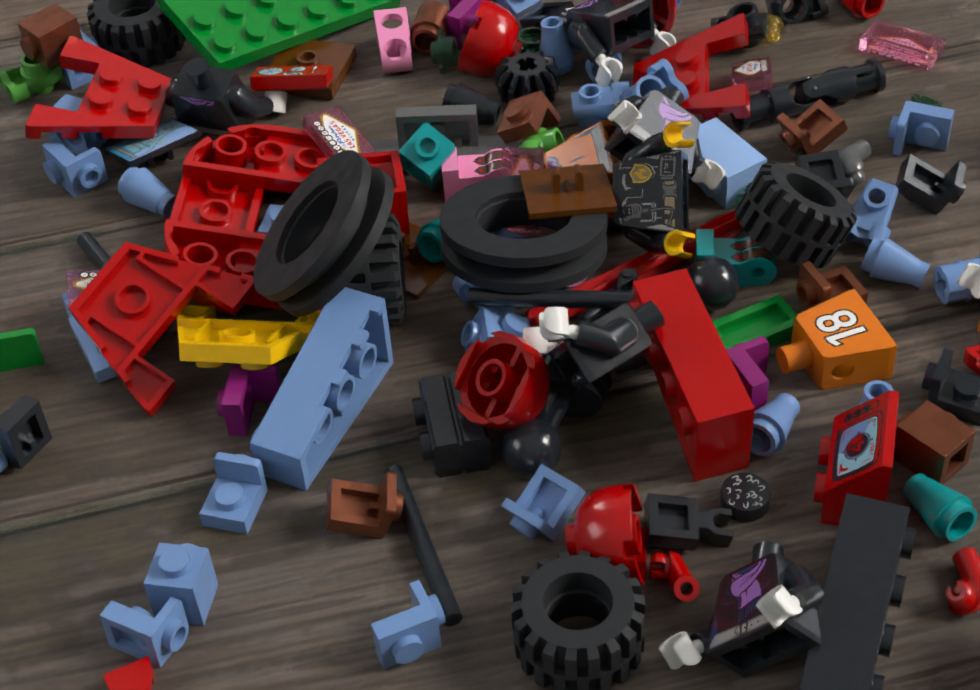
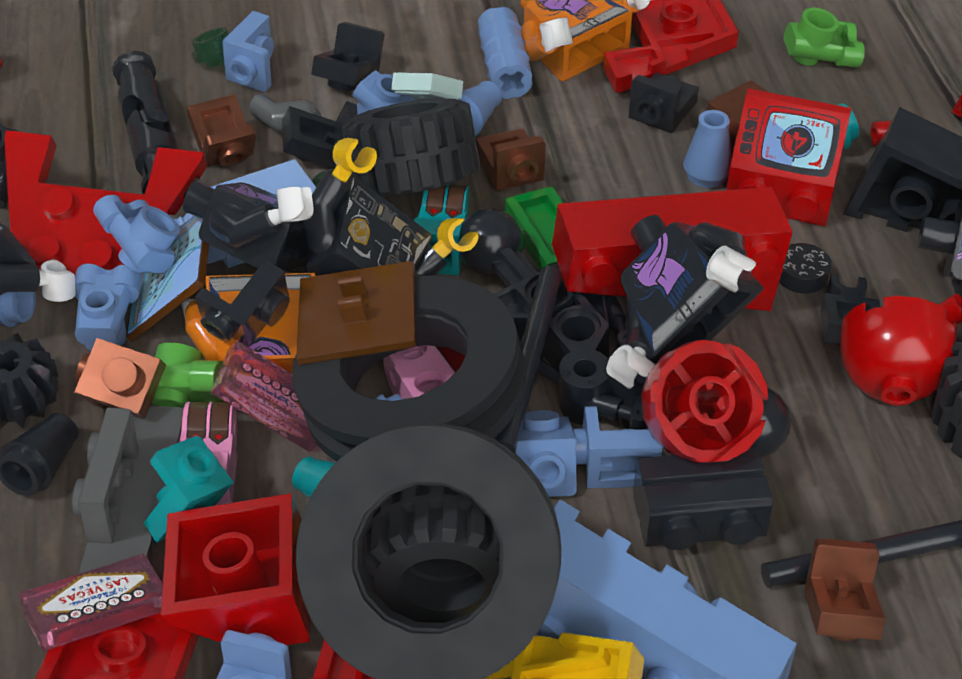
camera: 90 degrees left, 0 degrees up
(544, 504) = (834, 423): medium blue bracket -> none
(567, 142) = (257, 305): none -> black bracket
(755, 73) = (104, 158): clear pink tile -> none
(839, 344) = (592, 157): orange torso -> none
(878, 214) = (426, 85): none -> light aqua tile
(902, 44) = (69, 48): clear pink tile -> none

